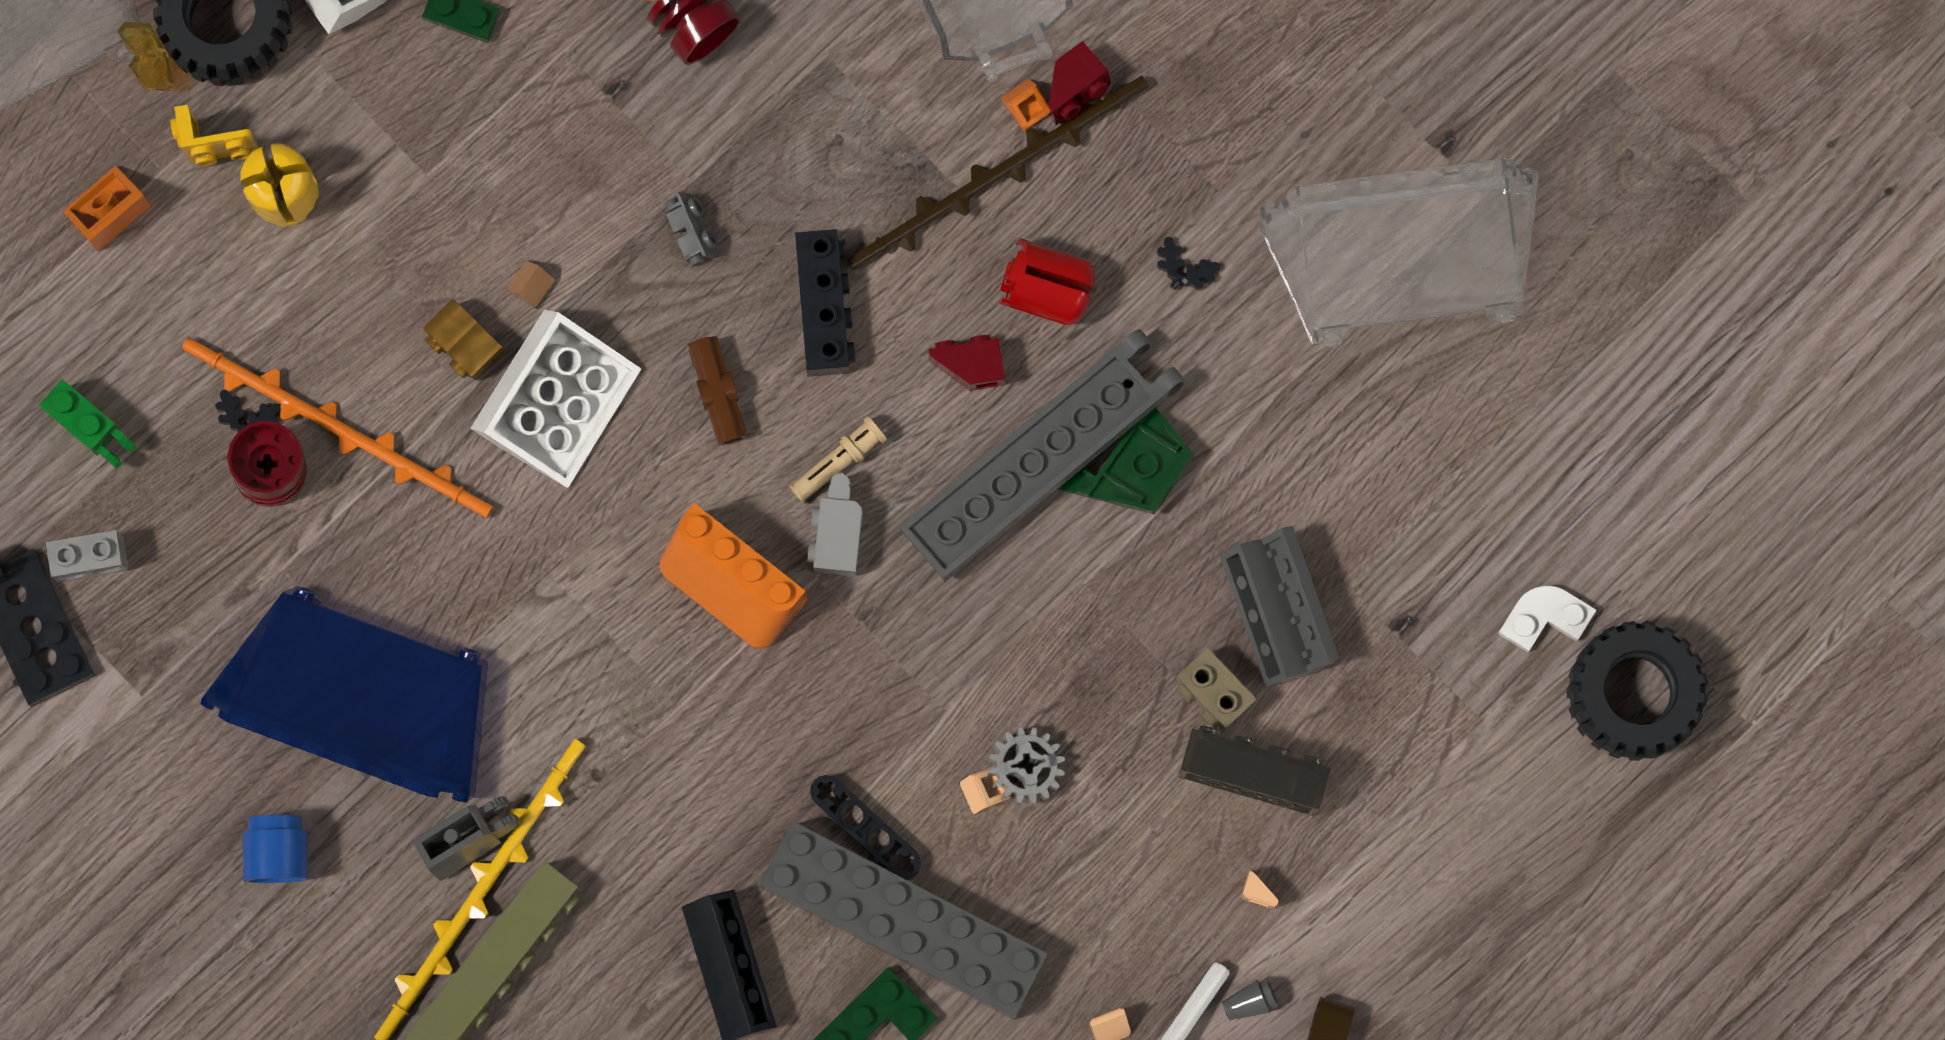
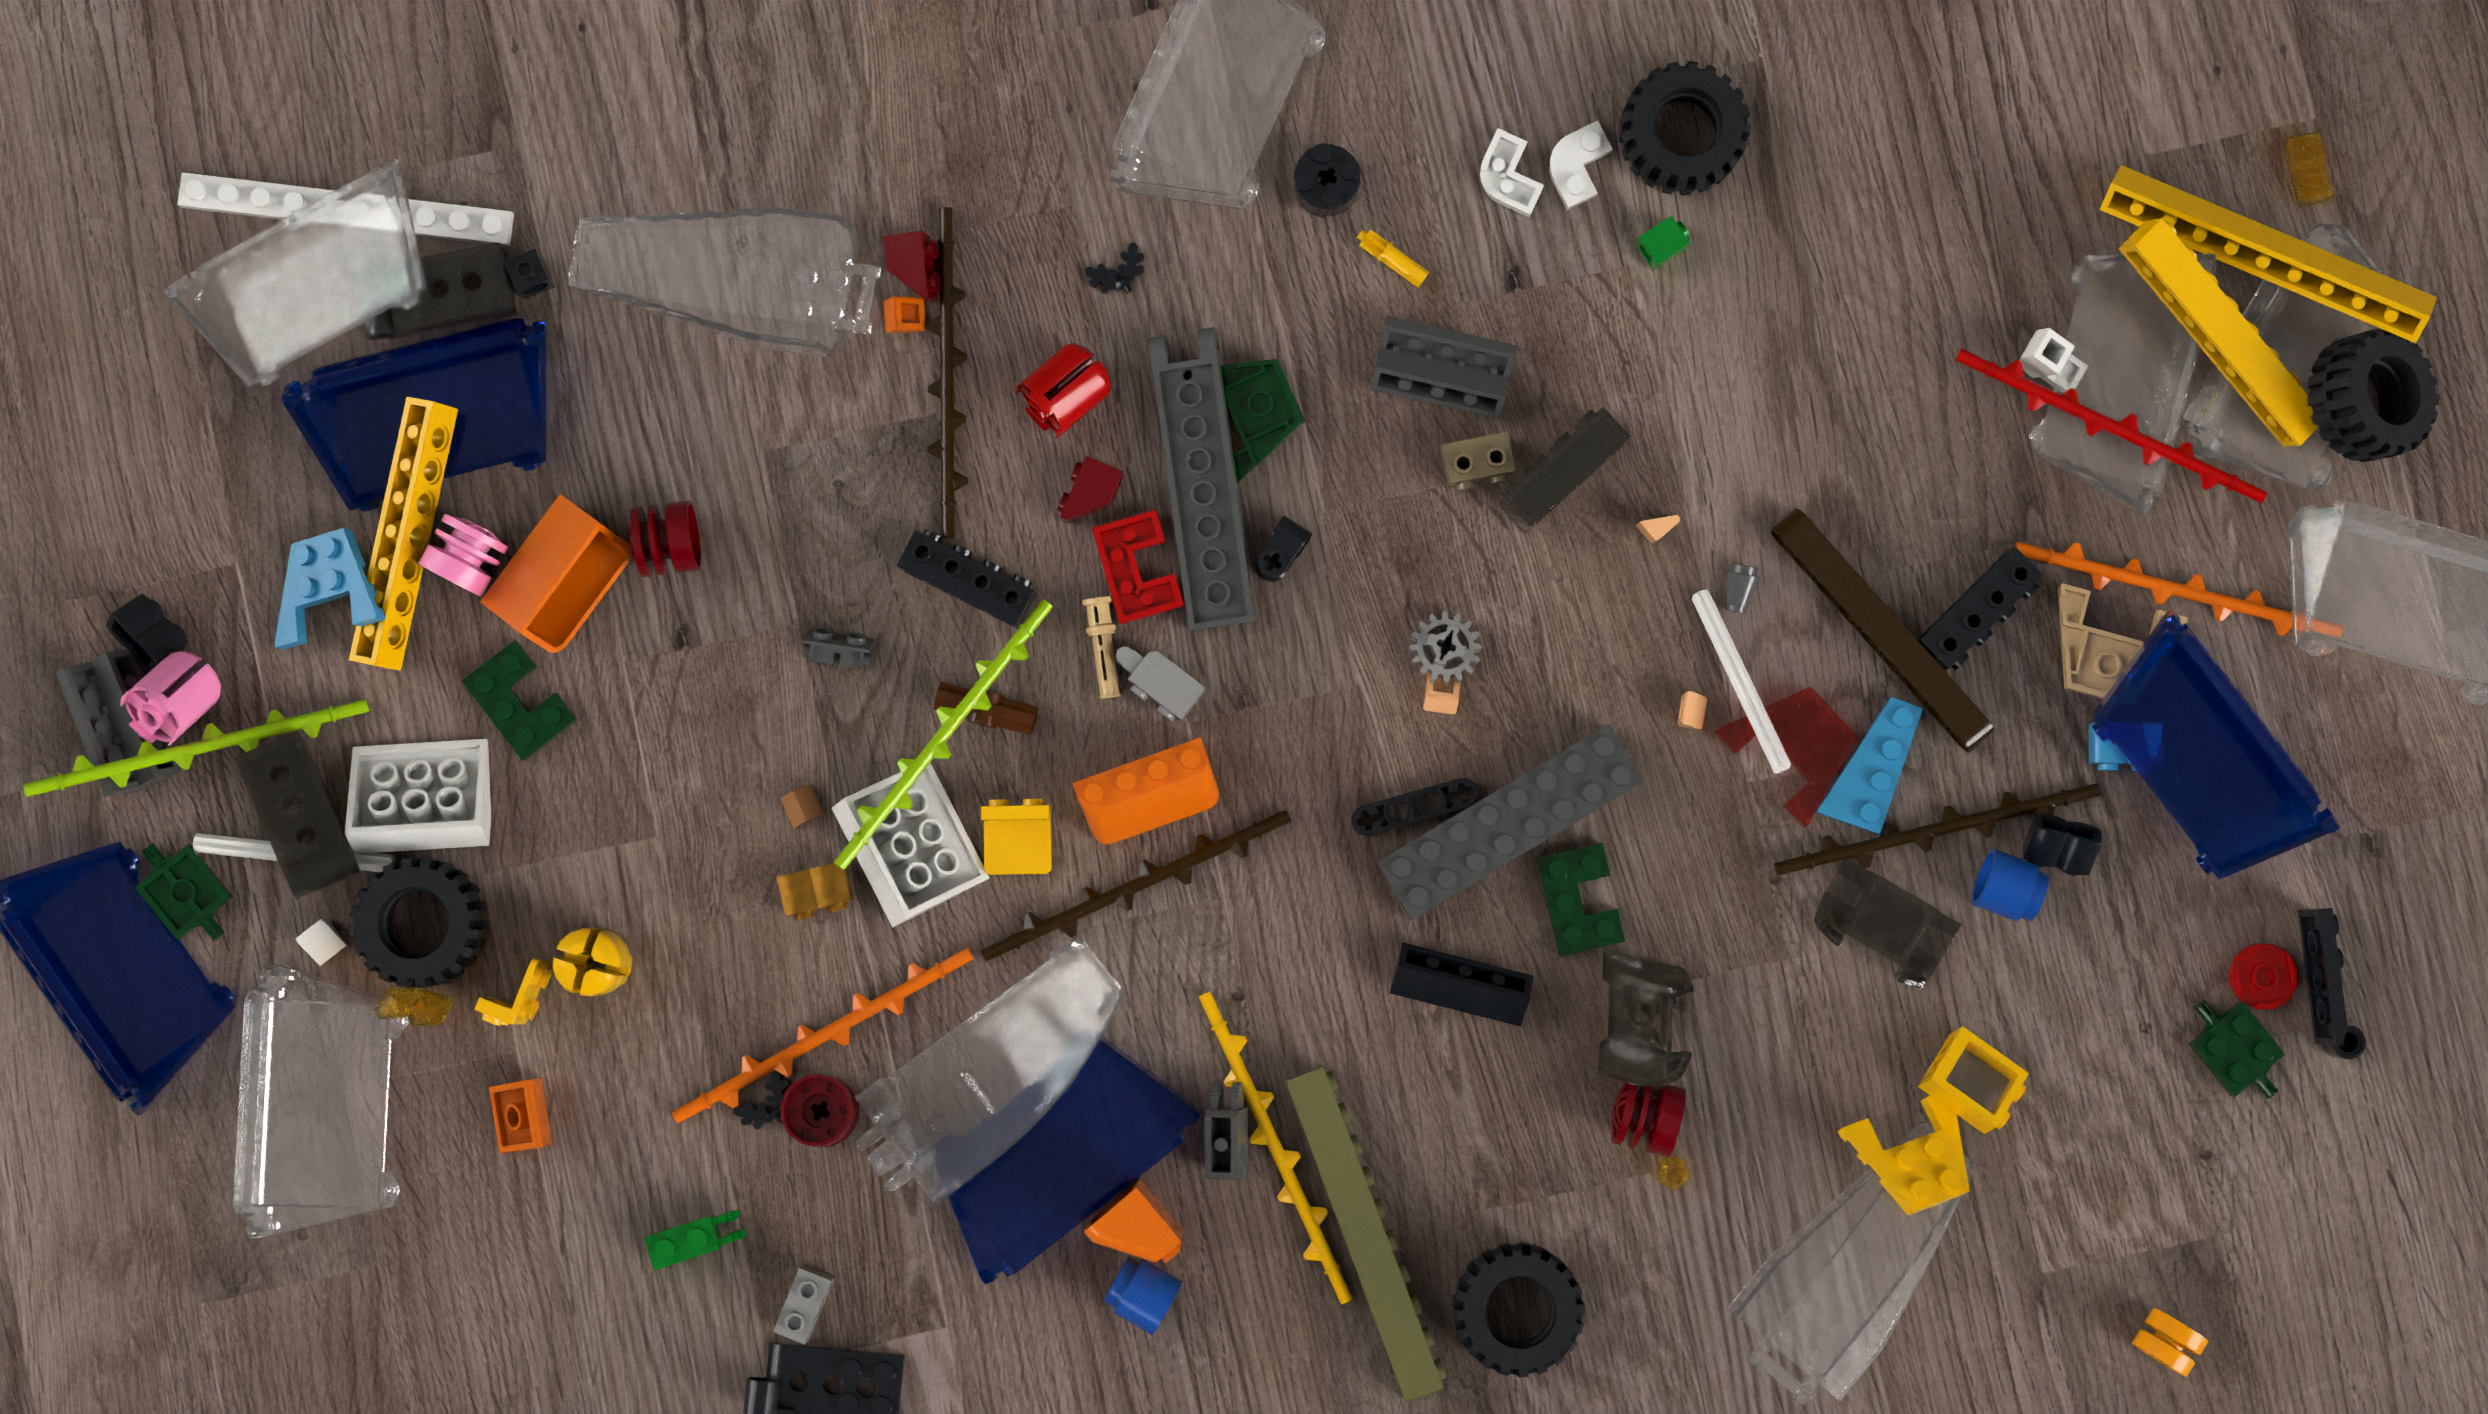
camera: 60 degrees left, 5 degrees up
(333, 802) = (1137, 1226): none -> orange windscreen
(387, 592) = (990, 1075): none -> clear windscreen
(618, 489) = (1017, 837): none -> yellow bracket
(654, 366) = (937, 746): none -> lime plant
(655, 627) = (1124, 894): none -> dark brown plant
(899, 455) = (1116, 549): none -> red plate
(1030, 565) = (1285, 545): none -> black piece
(1352, 502) = (1392, 257): none -> yellow piece
(1369, 413) = (1321, 162): none -> black brick
(1488, 552) = (1501, 181): none -> white plate
(1522, 737) = (1663, 242): none -> green brick

